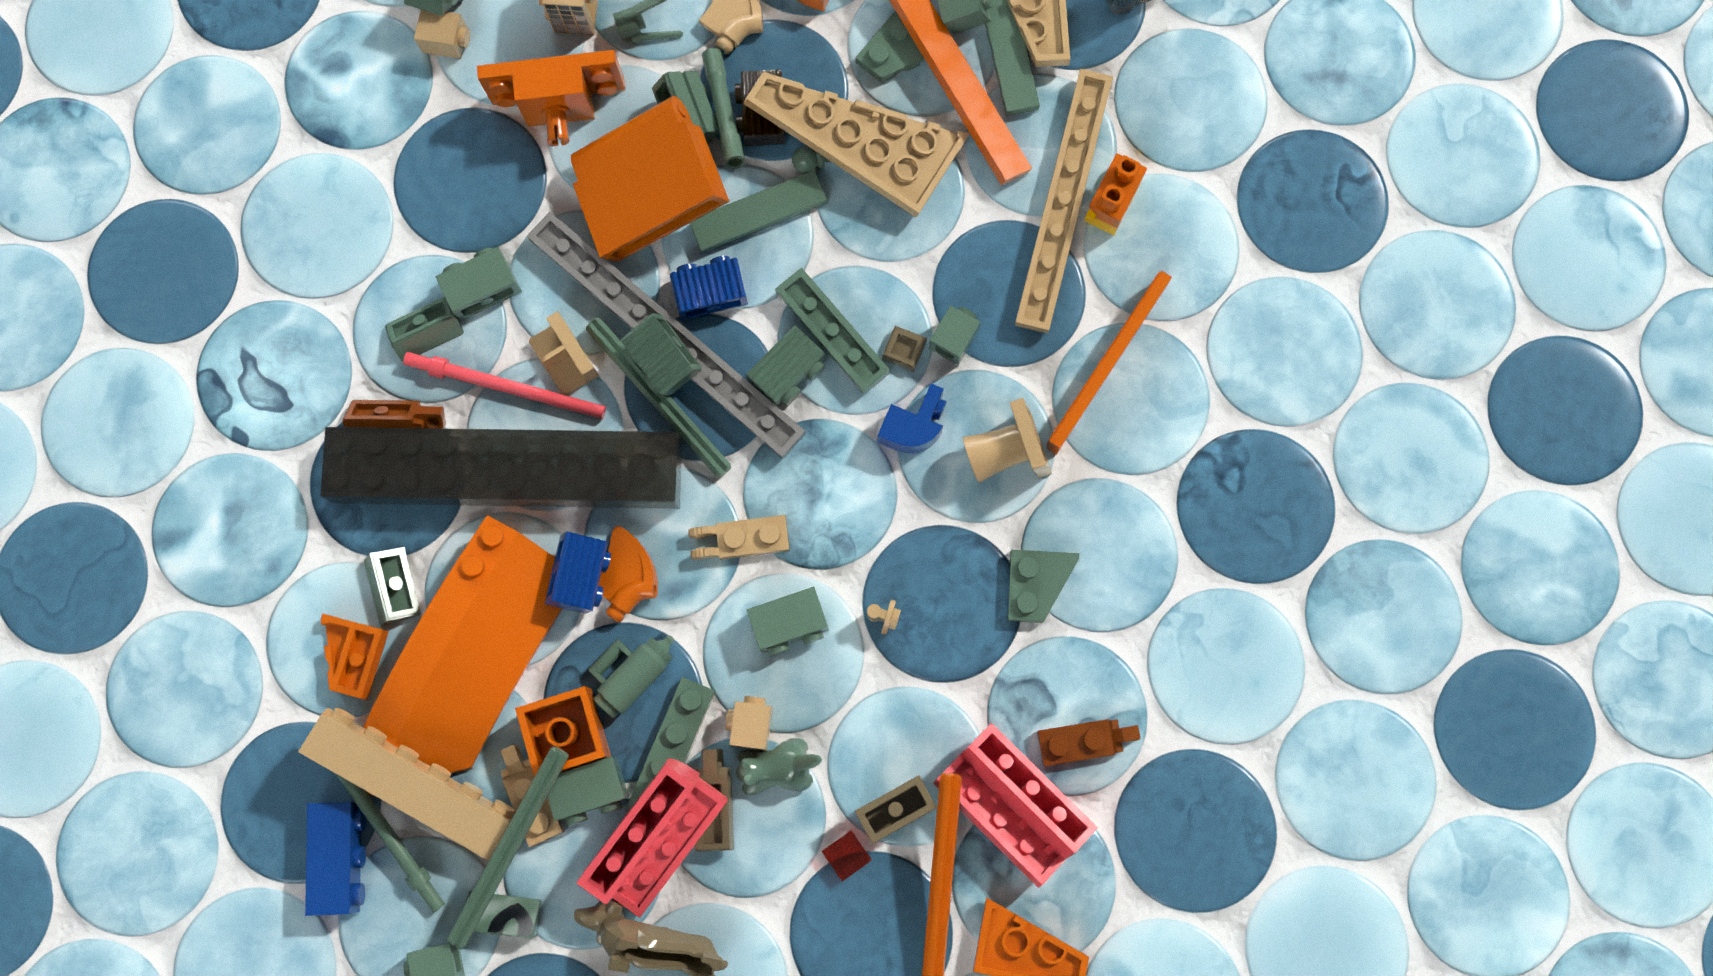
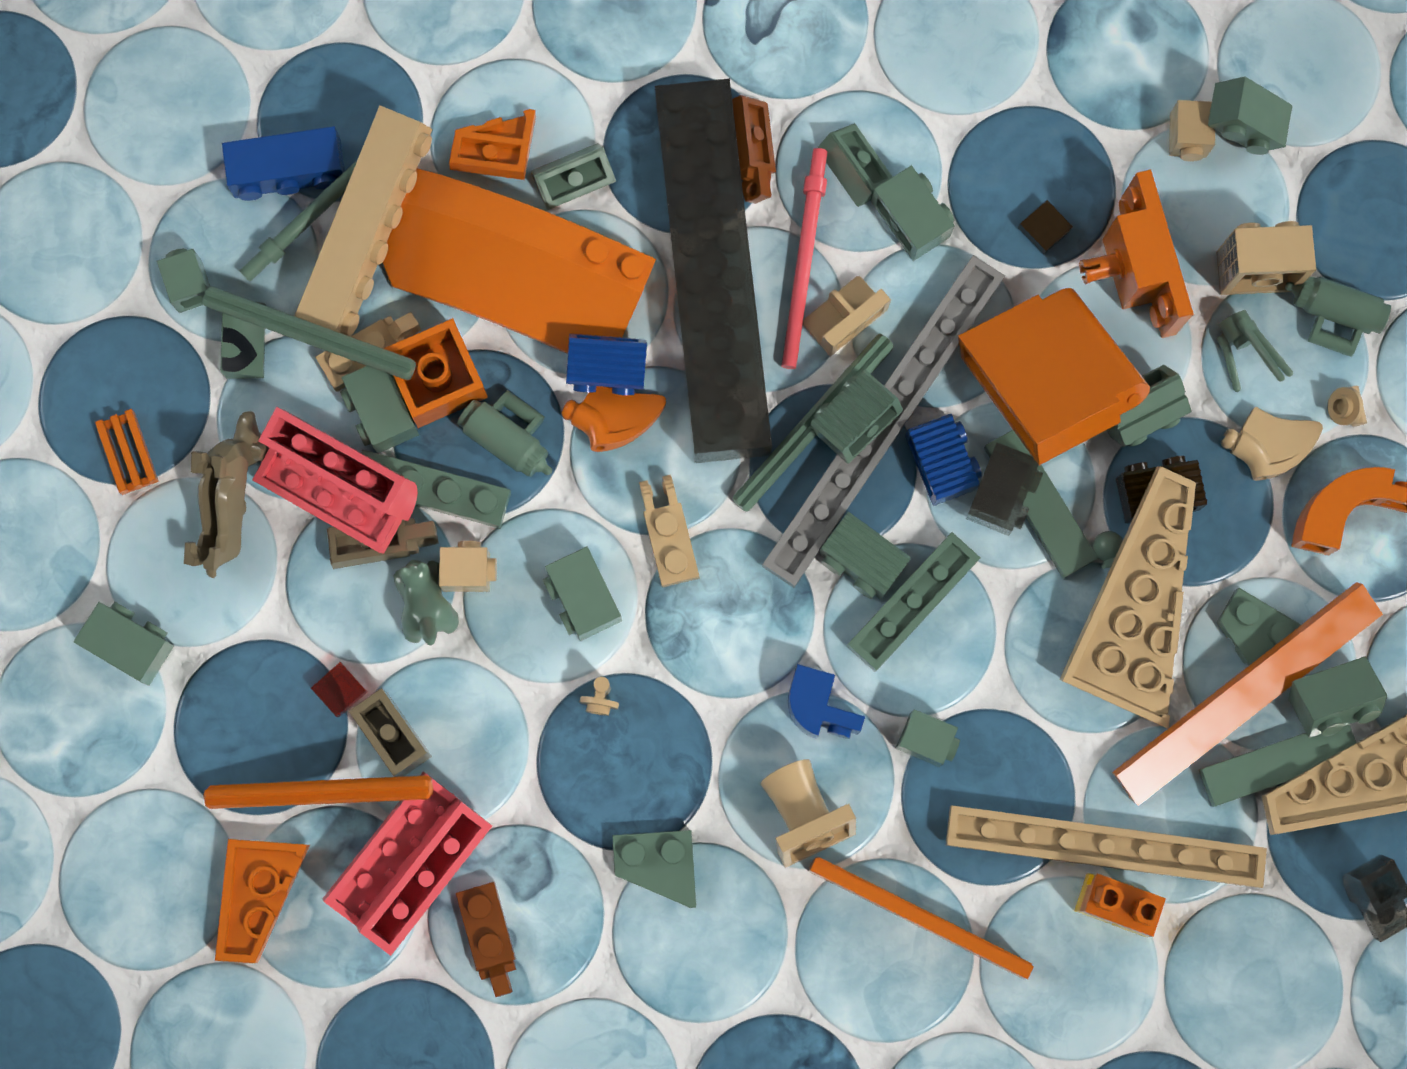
camera: 75 degrees right, 0 degrees up
(509, 172) = (1045, 227): none -> dark brown tile
(729, 139) = (1115, 457): sand green piece -> none
(744, 237) = (1004, 489): none -> clear smoke brick
(904, 348) = (905, 685): dark tan tile -> none

